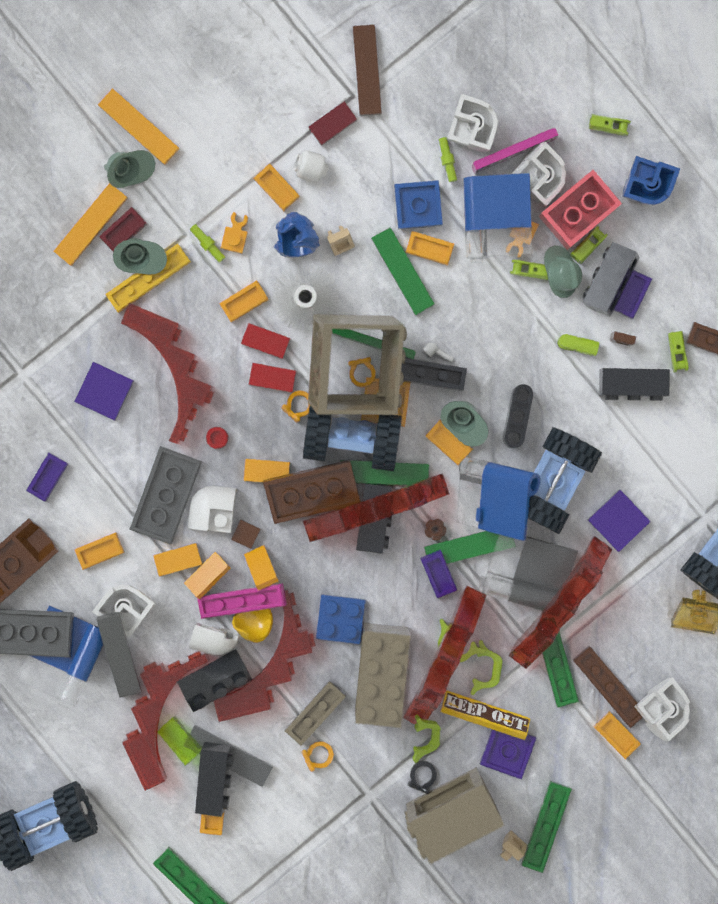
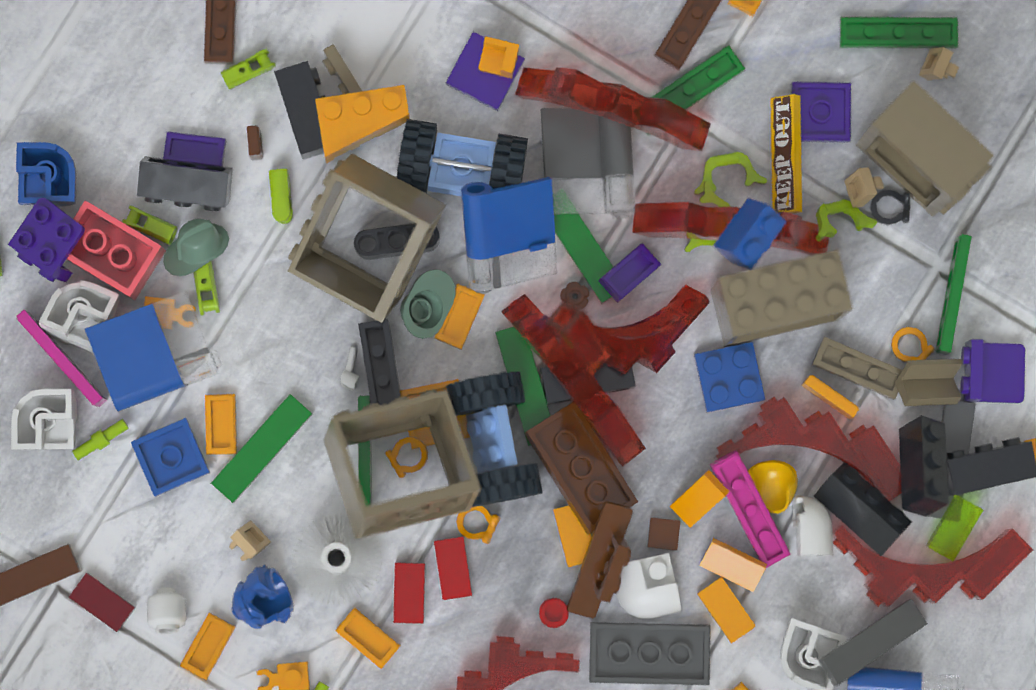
camera: 115 degrees left, 5 degrees down
(229, 734) = (923, 466): none -> black brick
(239, 484) = (603, 561): none -> reddish brown bracket
(280, 807) = (993, 372): none -> dark purple bracket
(287, 759) = (929, 382): none -> dark tan panel
(302, 685) = (830, 396): none -> light orange tile
(344, 798) = (953, 294): none -> green tile
(386, 549) = (621, 347): none -> clear red arch
(434, 668) = (749, 233): none -> blue brick
(443, 761) = (862, 186): none -> tan tile
(508, 364) = (343, 278): none -> dark tan window
(602, 167) = (47, 239): none -> dark purple bracket
(615, 418) = (359, 117): none -> light orange wedge
(625, 533) = (498, 57): none -> light orange panel
(639, 419) = (335, 64): none -> dark tan plate

